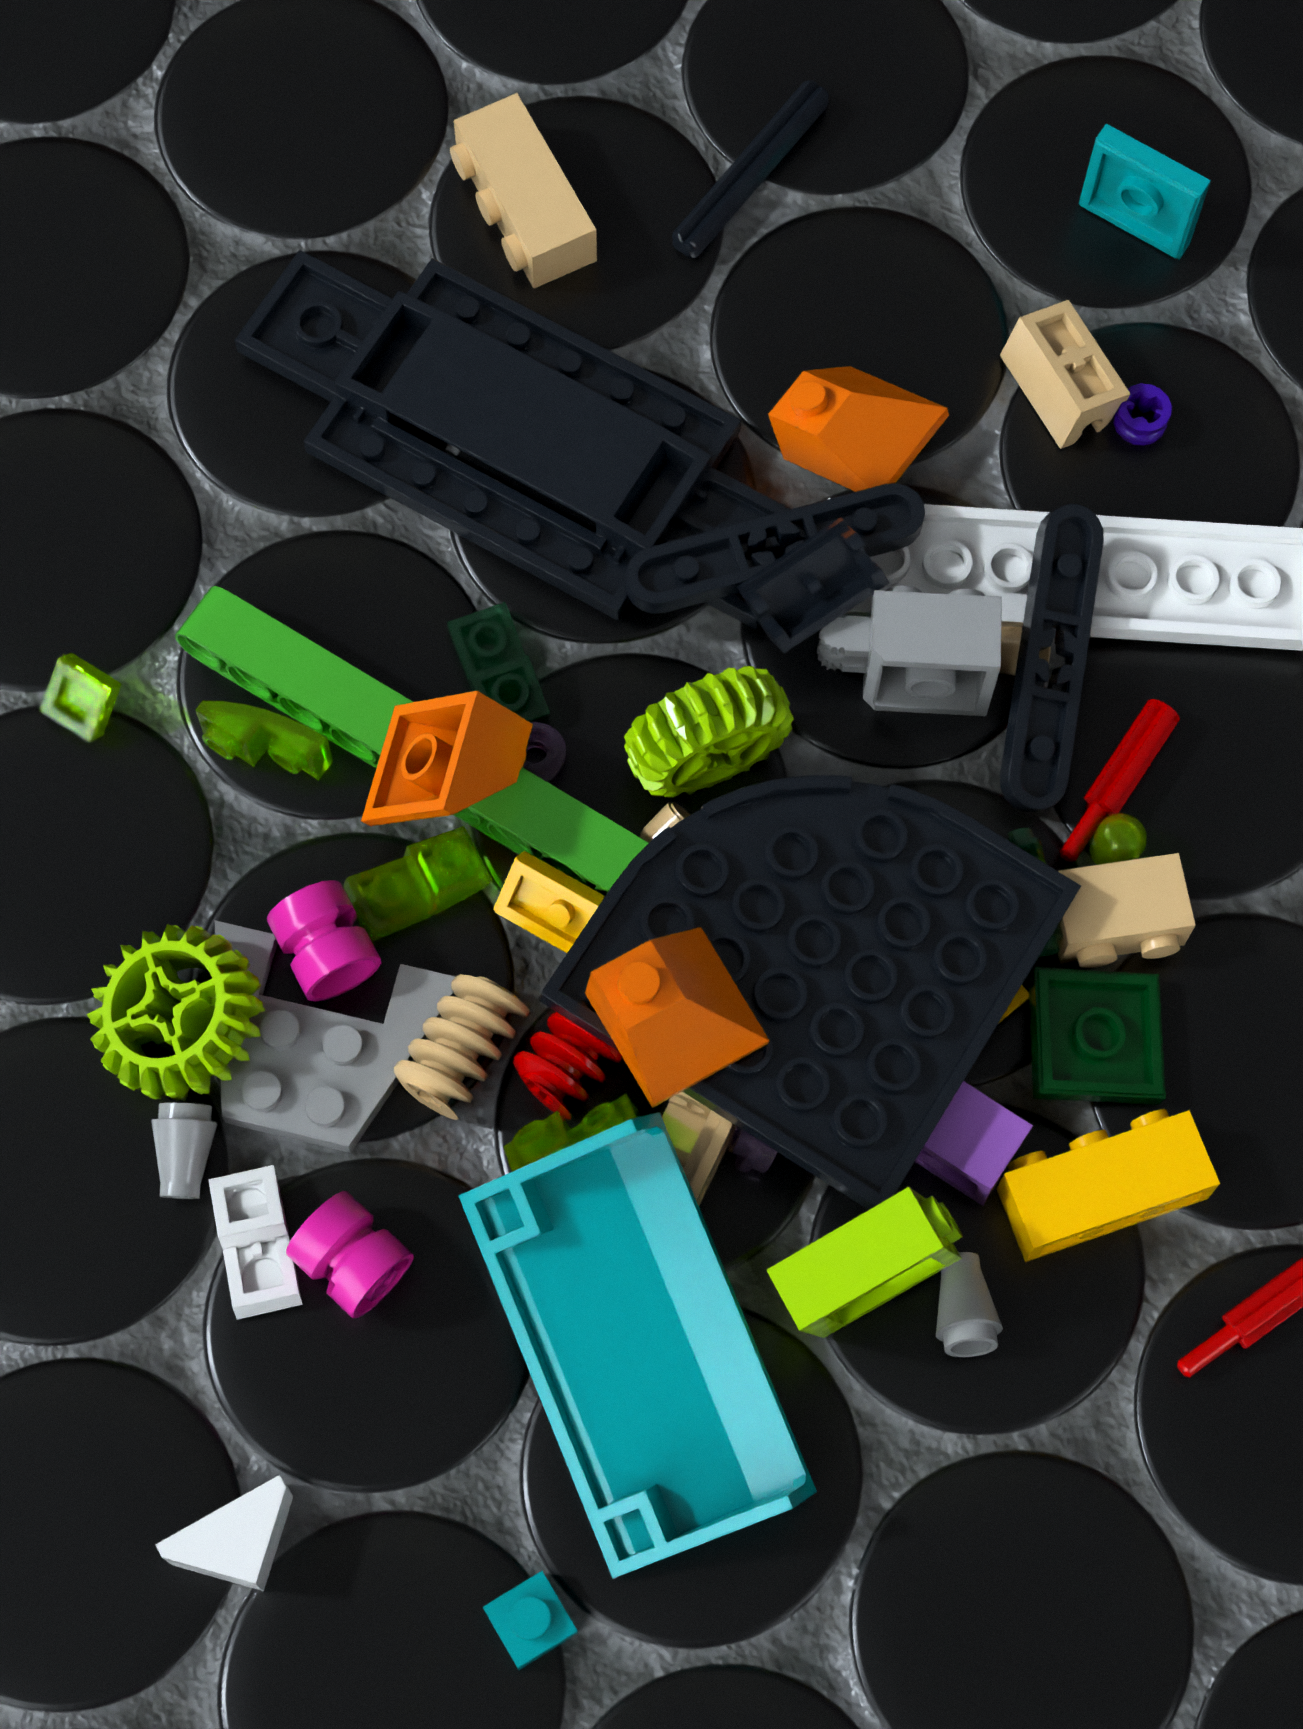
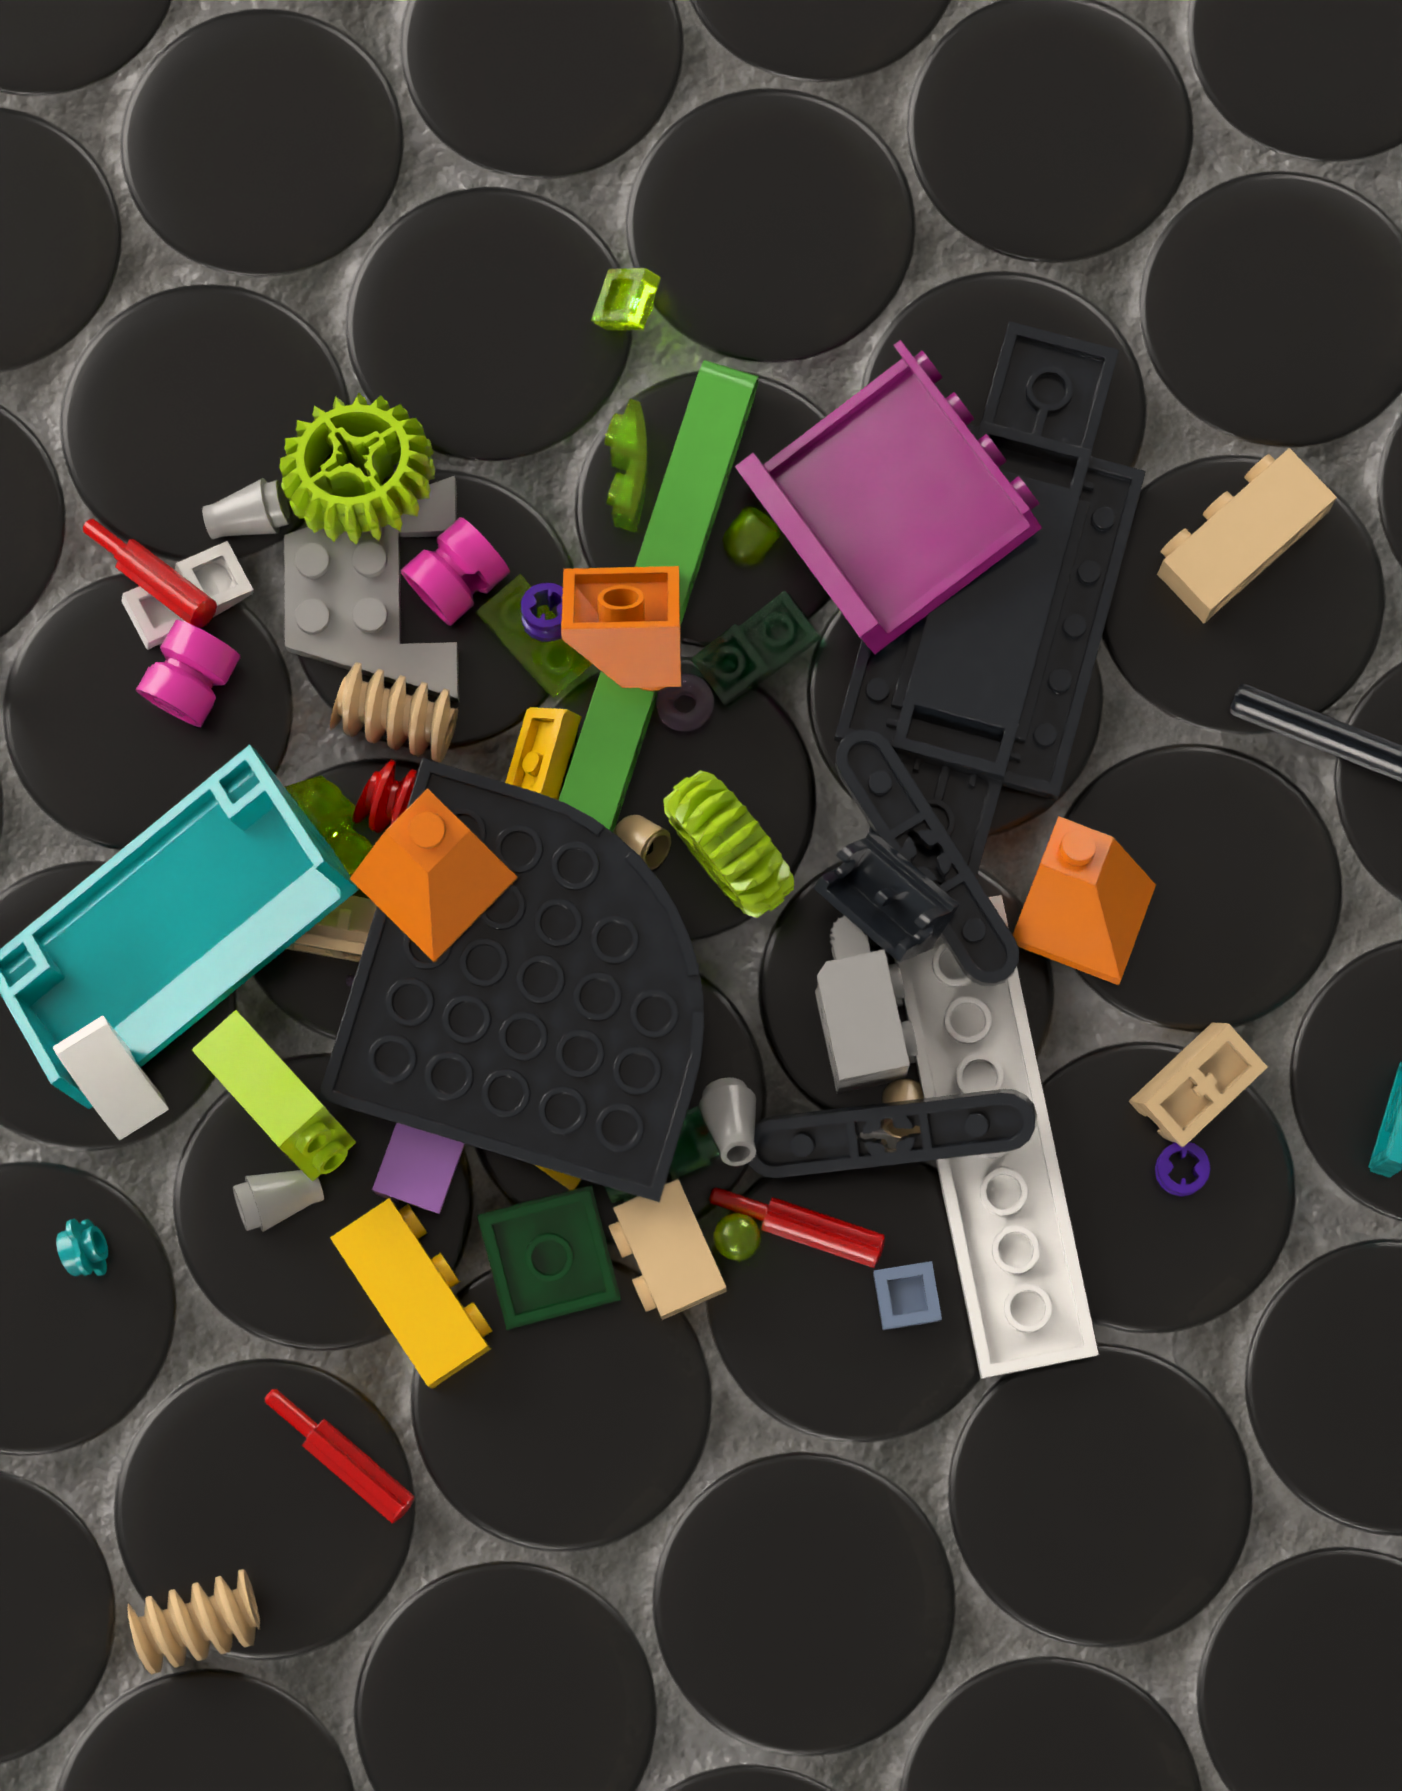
camera: 80 degrees right, 10 degrees up
(224, 1265) = (155, 576): none -> red axle
(376, 647) = (750, 536): none -> clear neon green piece
(389, 480) = (894, 500): none -> magenta panel
(419, 859) = (537, 596): none -> dark purple bush
(792, 1449) = (110, 1077): none -> white slope
(975, 1536) = (82, 1248): none -> teal plate
(1004, 806) = (730, 1117): none -> light grey cone
(1216, 694) = (907, 1295): none -> sand blue plate

